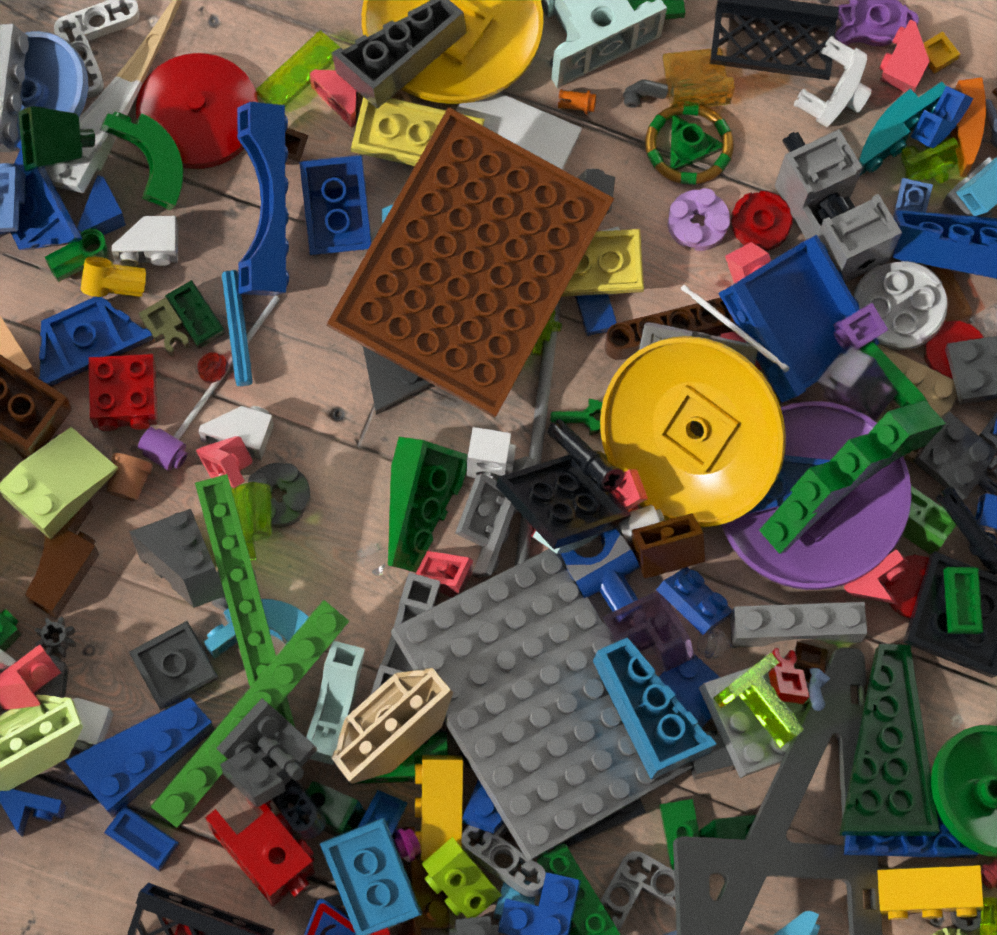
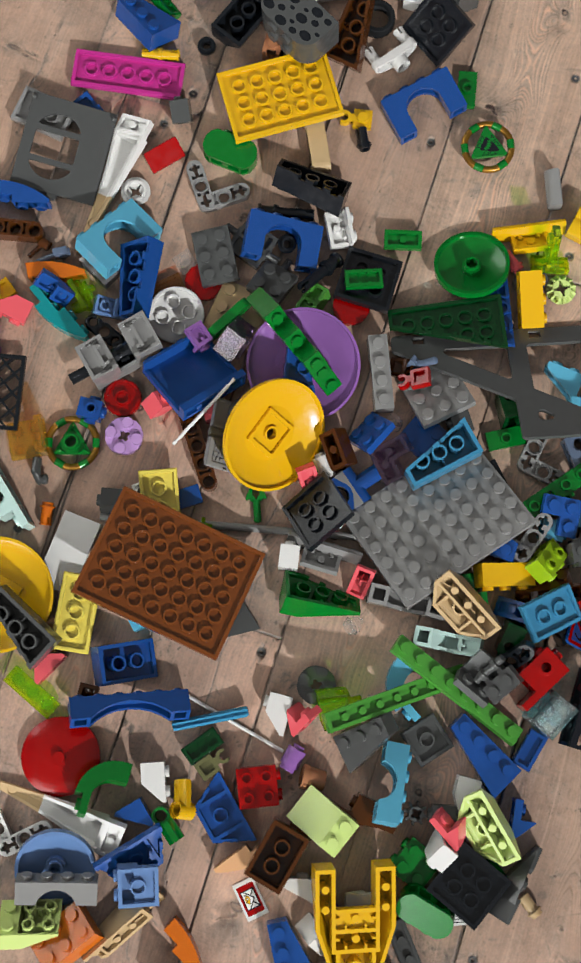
camera: 90 degrees left, 10 degrees up
(51, 137) = (96, 847): dark green torso -> none
(66, 584) = (395, 759): none -> medium azure arch
(200, 866) = (550, 714): none -> clear light blue slope
(212, 367) = (234, 734): clear red plate -> none
(407, 844) = (530, 593): magenta plate -> none
(592, 462) = (291, 495): black pin -> none
(741, 168) = (86, 405): none -> blue brick
(763, 701) = (426, 399): clear neon green bracket -> none
(848, 90) = (34, 345): white connector -> none
(872, 584) = (356, 329): coral slope -> none
(874, 183) = (100, 324): none -> black piece

